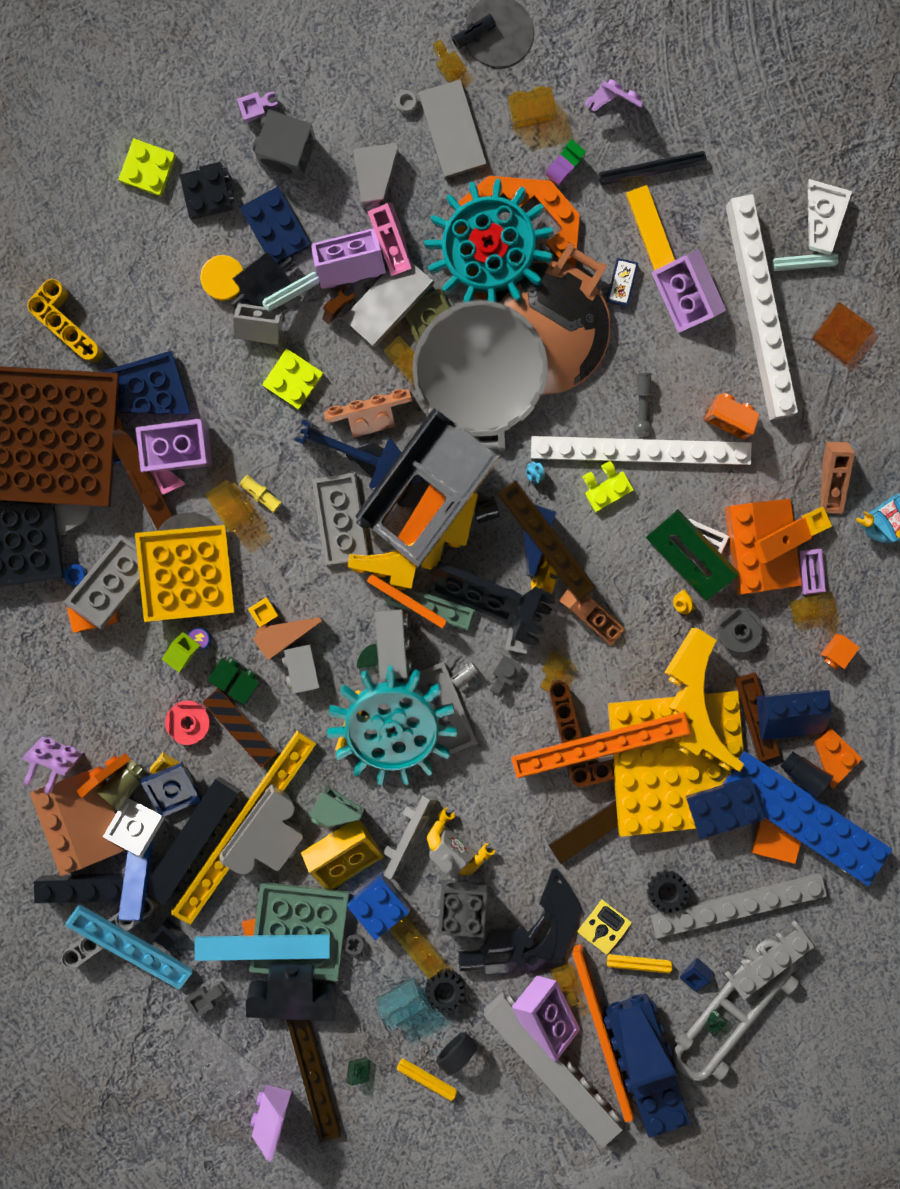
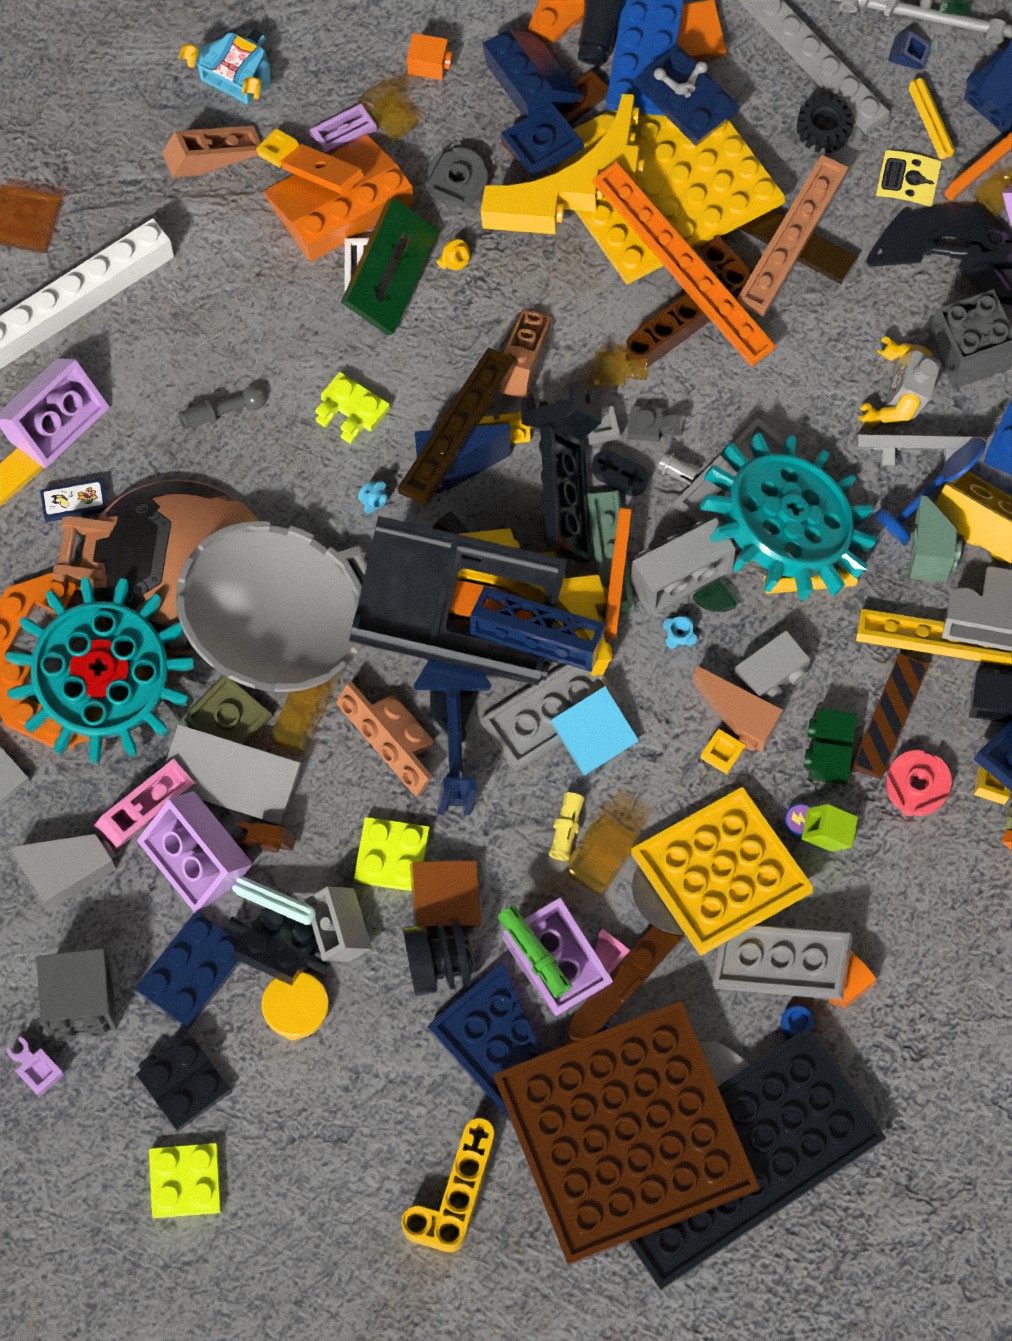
camera: 115 degrees left, 20 degrees down
(166, 431) = (539, 957): none -> bright green pin
(207, 373) = (437, 956): none -> black wheel
(249, 398) = (445, 892): none -> dark orange tile
(312, 538) = (594, 730): none -> medium azure tile
(351, 618) = (679, 623): none -> medium azure plate
(374, 849) = (955, 467): none -> blue piece
(380, 522) = (532, 634): none -> dark blue fence
(483, 641) = (619, 476): none -> black beam
(592, 828) = (792, 235): none -> nougat plate
(641, 450) = (285, 389): white plate -> none
(726, 808) = (683, 88): none -> light grey piece
(732, 416) = (190, 293): orange slope -> none
(737, 696) = (542, 140): none -> dark blue plate

